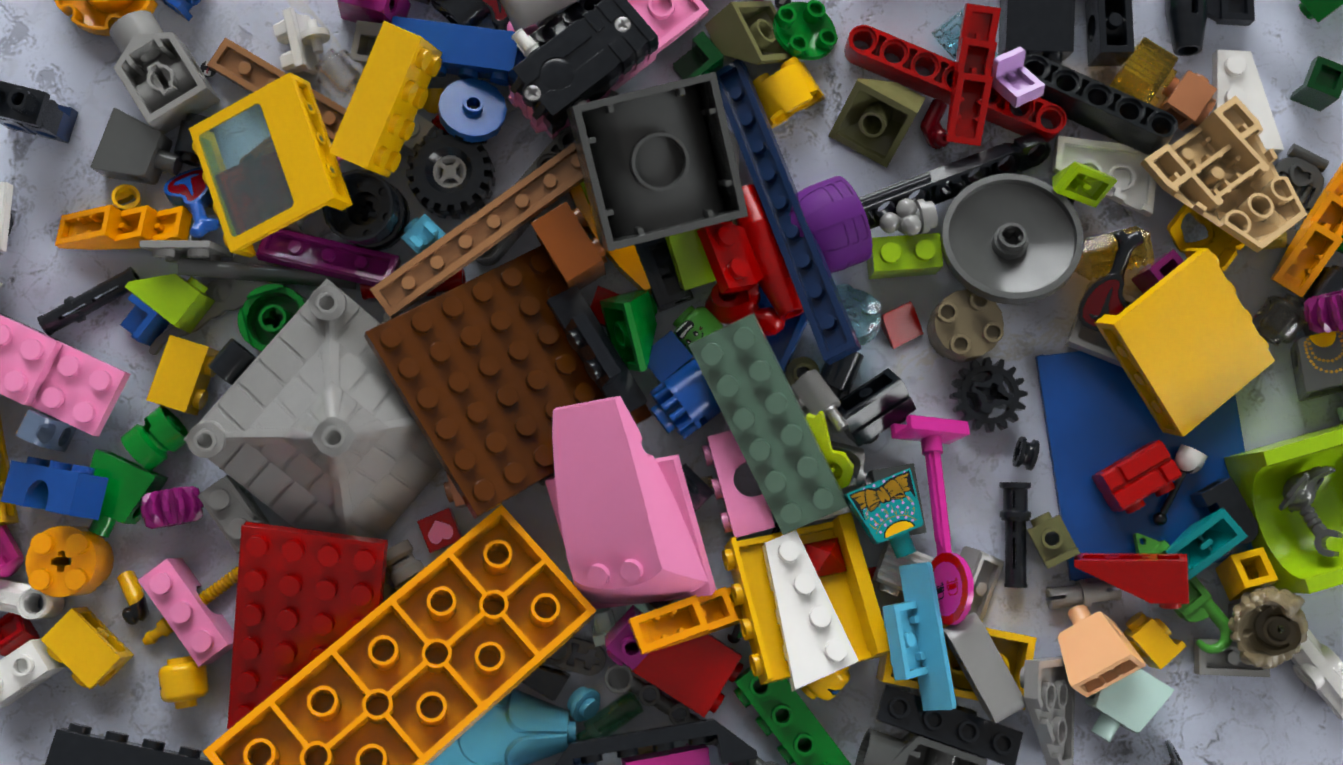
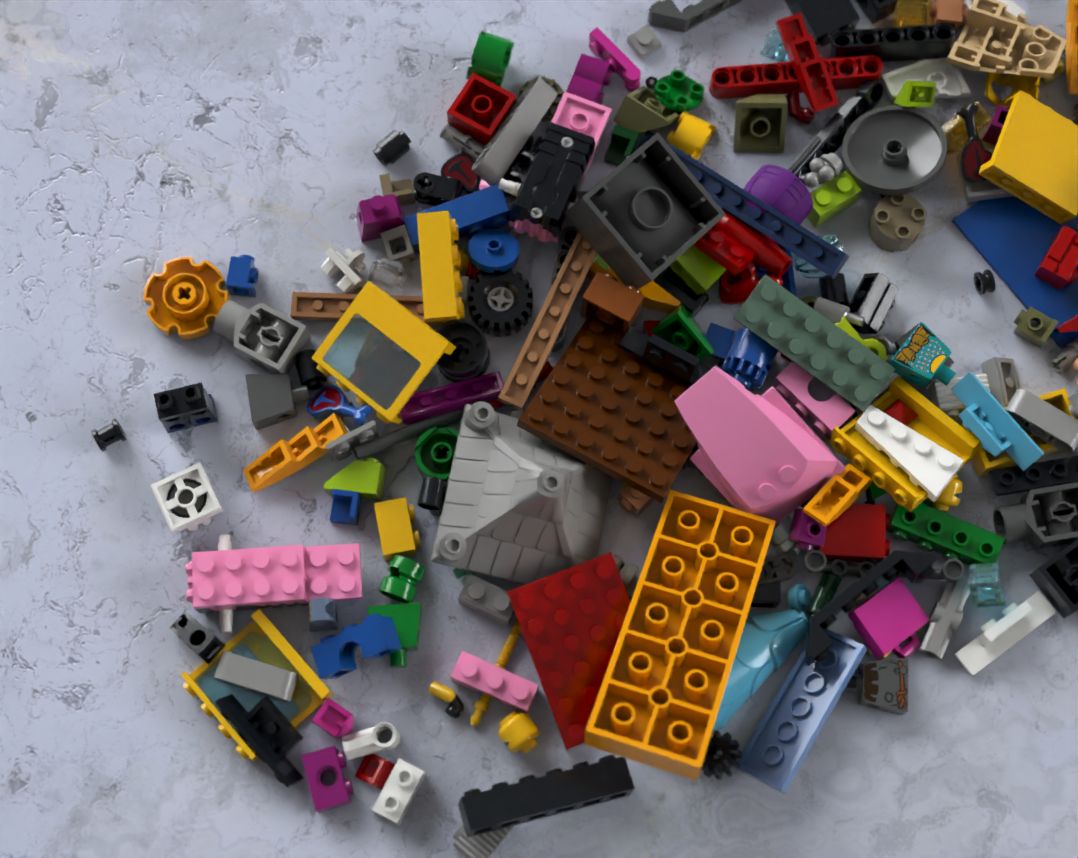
camera: 30 degrees left, 10 degrees down
(49, 561) = (394, 679): light orange brick -> none
(55, 321) = (293, 523): black pin -> none
(86, 648) = (436, 749): yellow brick -> none
(123, 194) = (282, 428): yellow hinge -> none
(171, 507) = (442, 618): magenta gear -> none
(421, 233) = (507, 350): medium azure brick -> none
(439, 530) = (632, 538): red tile -> none
(695, 324) = (723, 312): bright green head -> none
(901, 325) = (855, 244): slope -> none
(950, 570) = (989, 370): dark pink piece -> none
(1001, 400) = (940, 255): black gear -> none
(1014, 80) = (836, 53): lavender bracket -> none
(1015, 509) = (1005, 322): black pin -> none
(1303, 170) = (1047, 17): dark grey piece -> none

